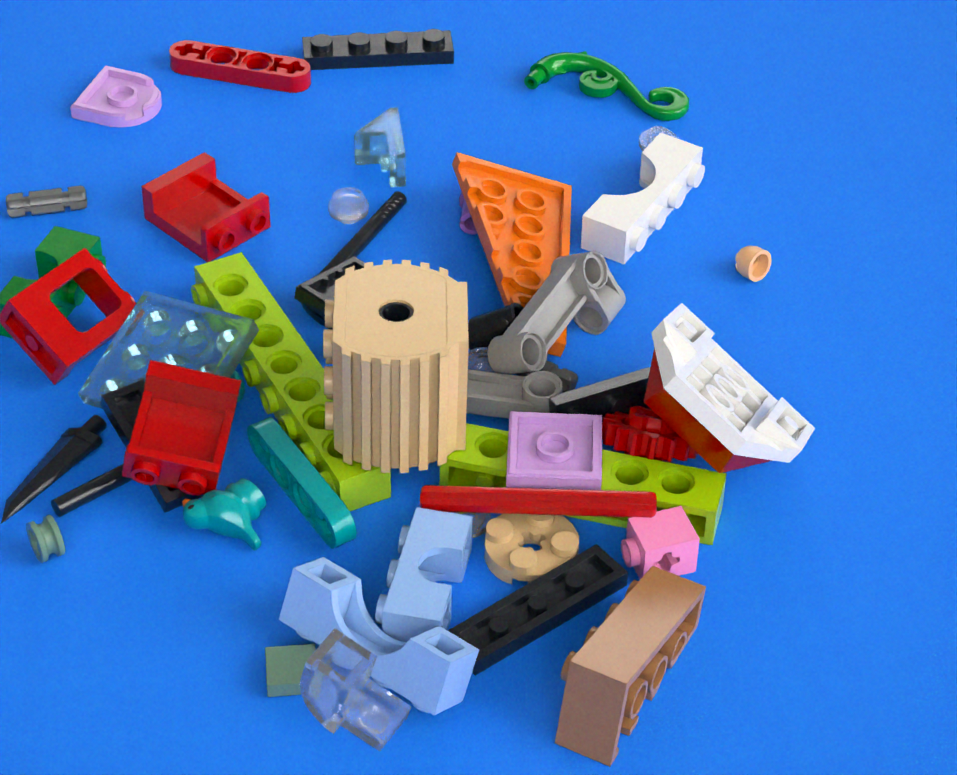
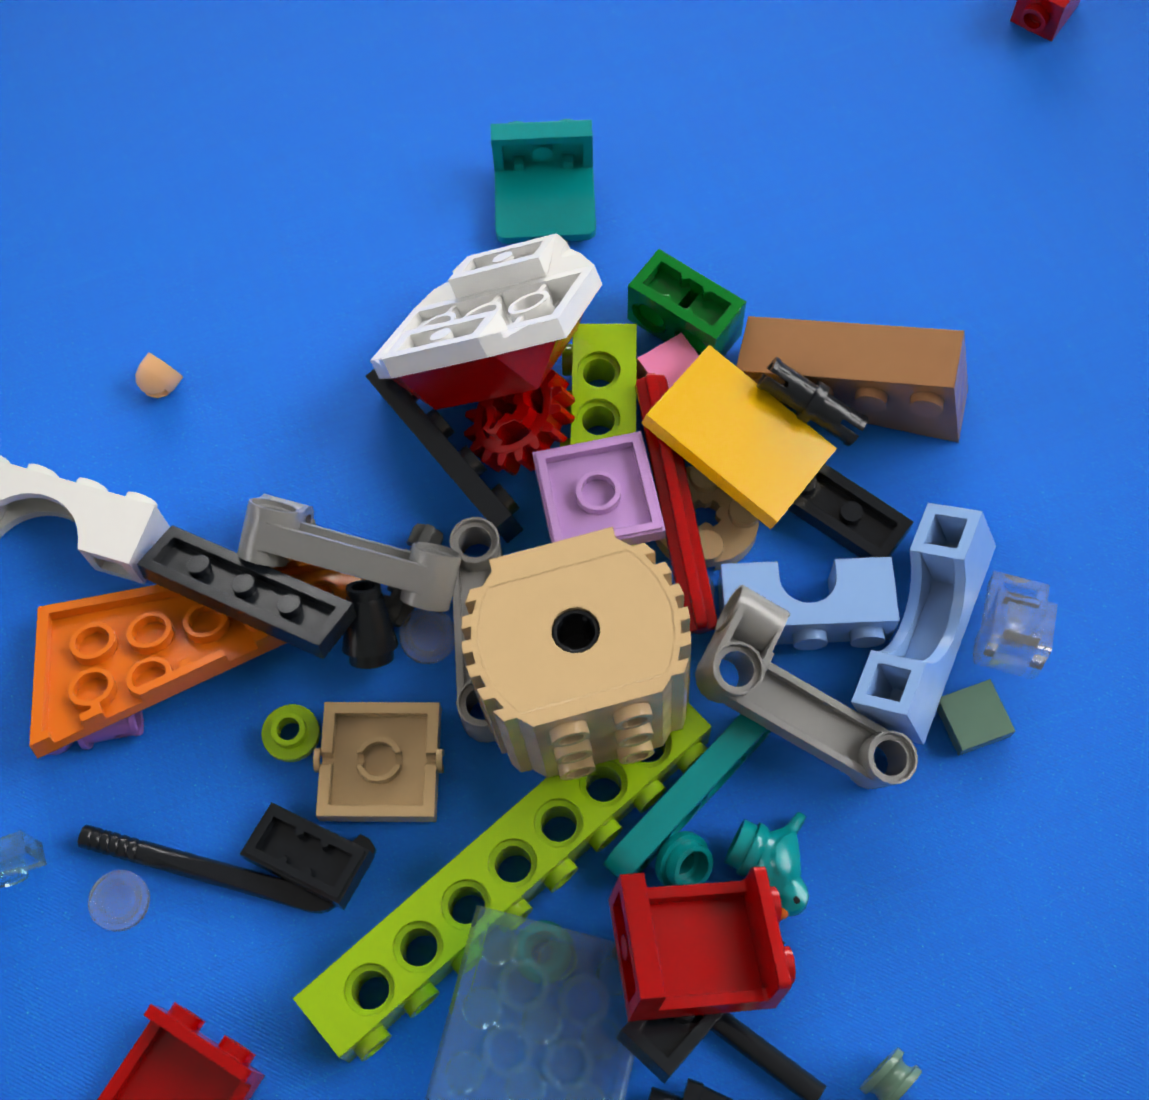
camera: 100 degrees left, 25 degrees up
(249, 462) = (684, 860): none -> teal plate
(367, 491) = (790, 706): none -> light grey piece
(530, 264) = (248, 591): none -> black plate
(580, 543) = (739, 436): none -> yellow tile
(598, 593) = (812, 401): none -> black pin
(729, 551) = (676, 299): none -> green brick
(893, 505) = (543, 180): none -> teal bracket

